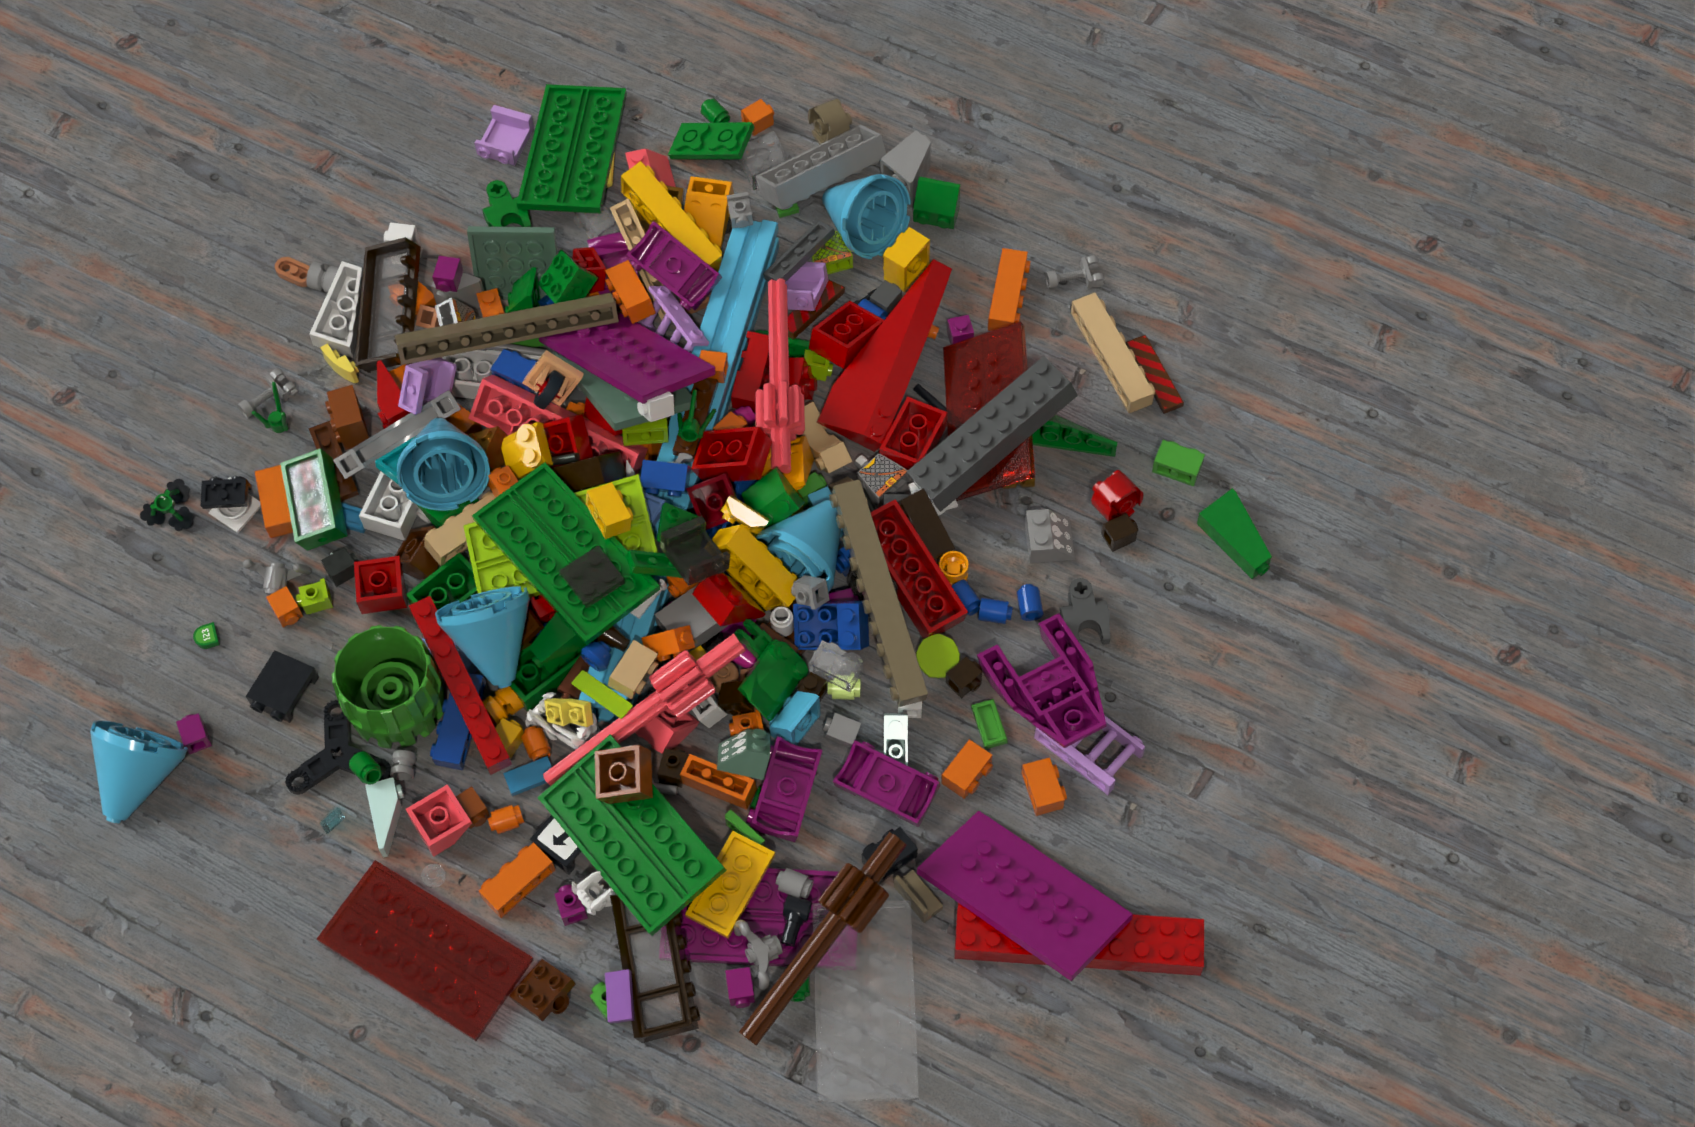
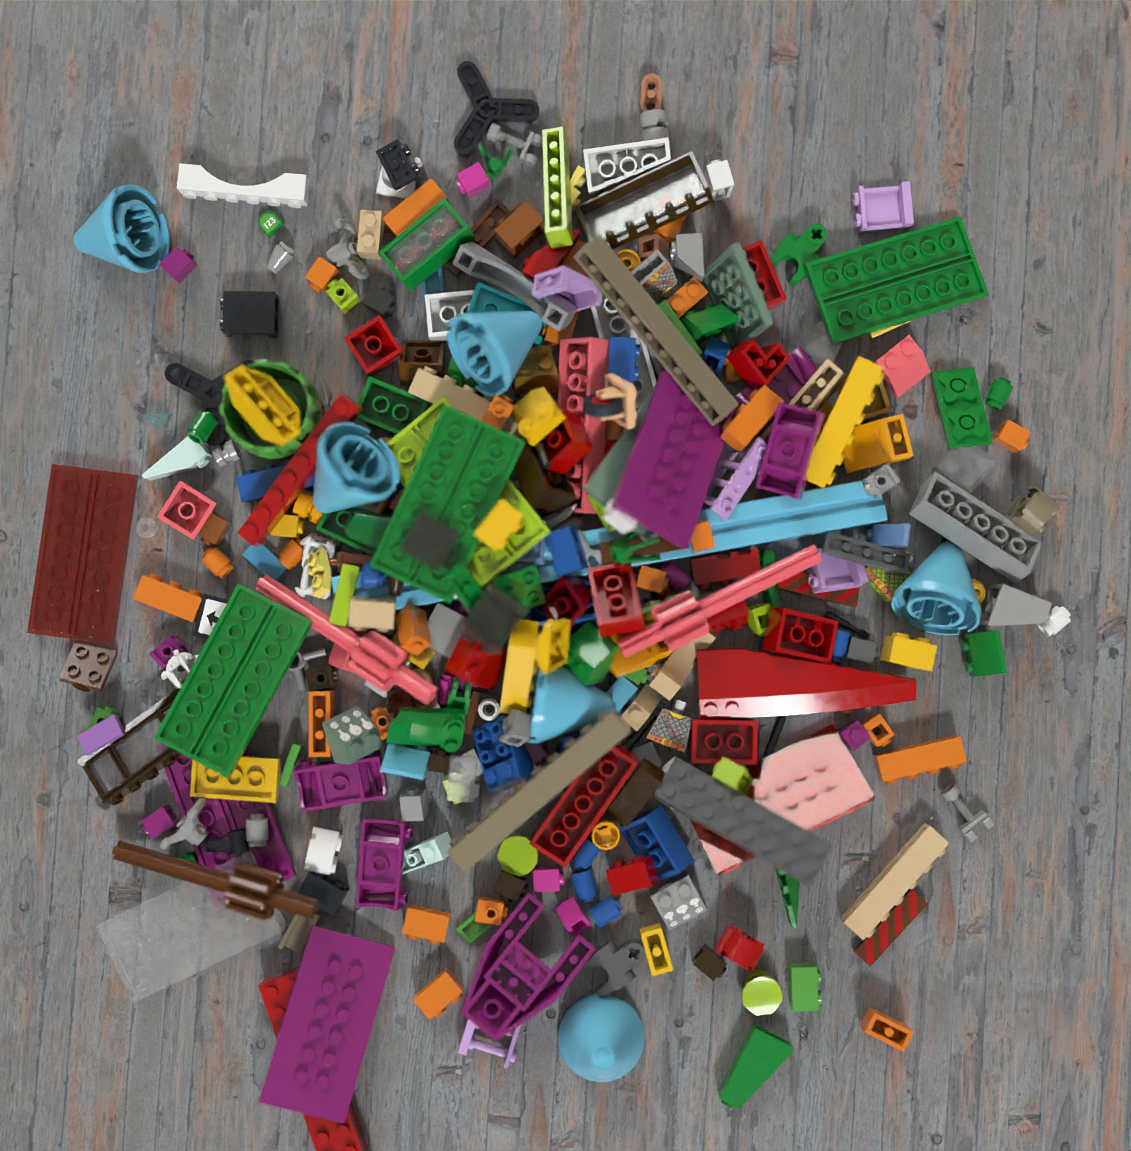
camera: 65 degrees right, 25 degrees up
(129, 679) = (286, 189): none -> white arch
(165, 503) = (361, 120): black plant -> none
(206, 406) = (478, 122): none -> black piece
(244, 637) = (280, 257): none -> light grey cone
(273, 547) = (370, 234): none -> tan brick
(278, 442) = (472, 180): none -> dark pink brick
(330, 363) = (557, 188): none -> lime brick
(381, 672) = (263, 405): none -> yellow wedge
(447, 274) = (690, 245): magenta brick -> none
(566, 279) = (731, 355): green bracket -> none
(623, 774) = (269, 655): dark orange brick -> none
(793, 225) = (888, 535): none -> medium blue slope
(847, 832) = (321, 851): none -> white brick
(939, 148) = (1057, 621): none -> white brick
(942, 426) = (732, 775): none -> lime brick
(967, 307) = (885, 733): none -> orange brick
(973, 640) = (547, 878): none -> dark pink brick
(980, 700) = (490, 910): none -> orange brick
(986, 533) = (657, 837): none -> blue slope
(1004, 561) = (632, 875): none -> red brick
(1020, 629) = (573, 916): none -> dark pink brick
(1087, 566) = (656, 949): none -> yellow brick
(1153, 658) = (601, 1037): none -> medium azure cone
(1169, 499) = (761, 993): none -> lime hat
(1246, 407) = (886, 1029): none -> orange brick

